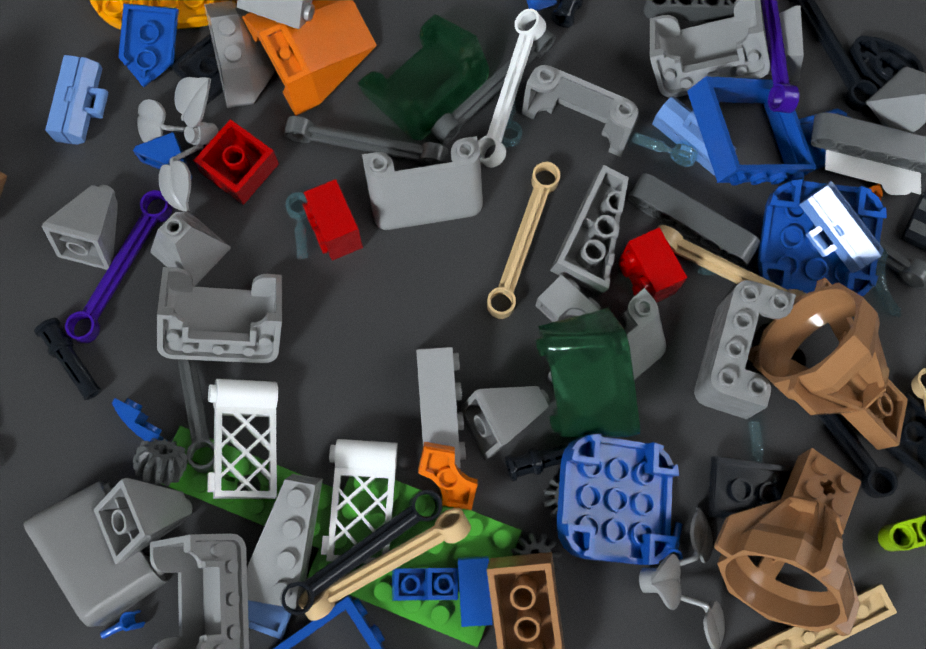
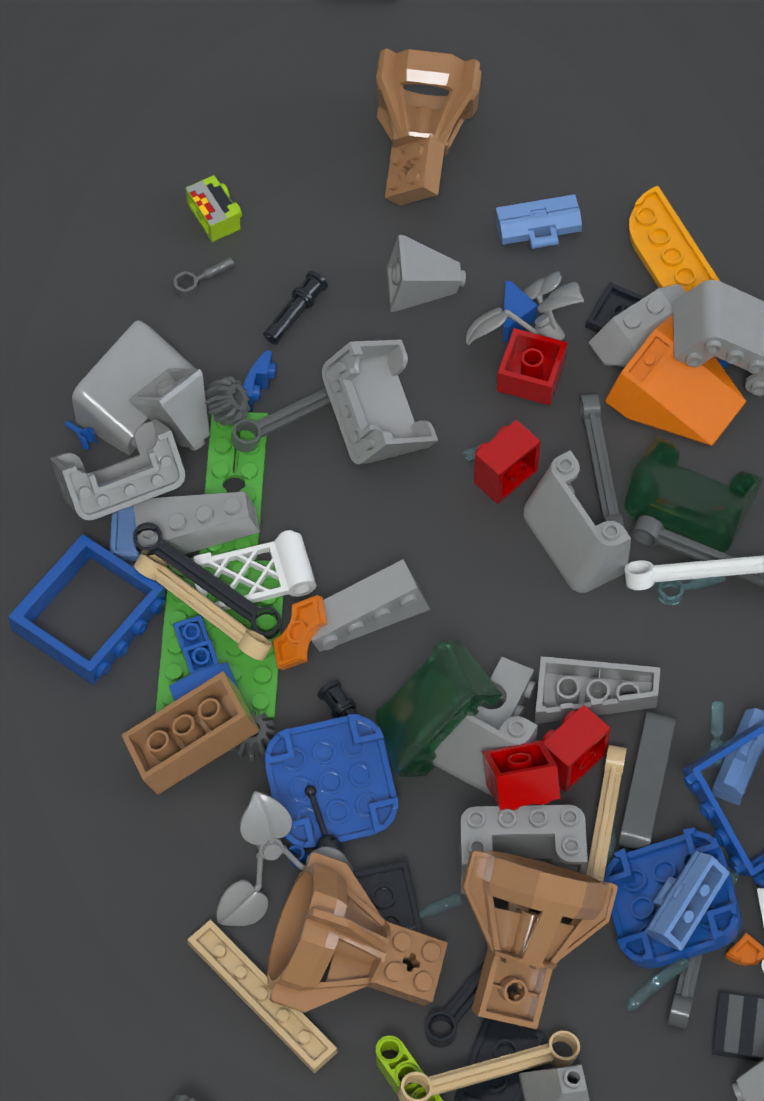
camera: 75 degrees right, 15 degrees down
(118, 268) = (392, 314): dark purple piece -> none
(148, 40) = (622, 254): blue tile -> none
(188, 245) = (437, 359): light grey slope -> none
(242, 399) = (306, 444): white piece -> none
(501, 414) = (374, 663): light grey slope -> none
(523, 239) = (563, 635): tan piece -> none
(552, 86) = (727, 669): light grey windscreen -> none
(677, 523) = (326, 839): none -> black hinge
(693, 321) = (521, 775): none -> red brick

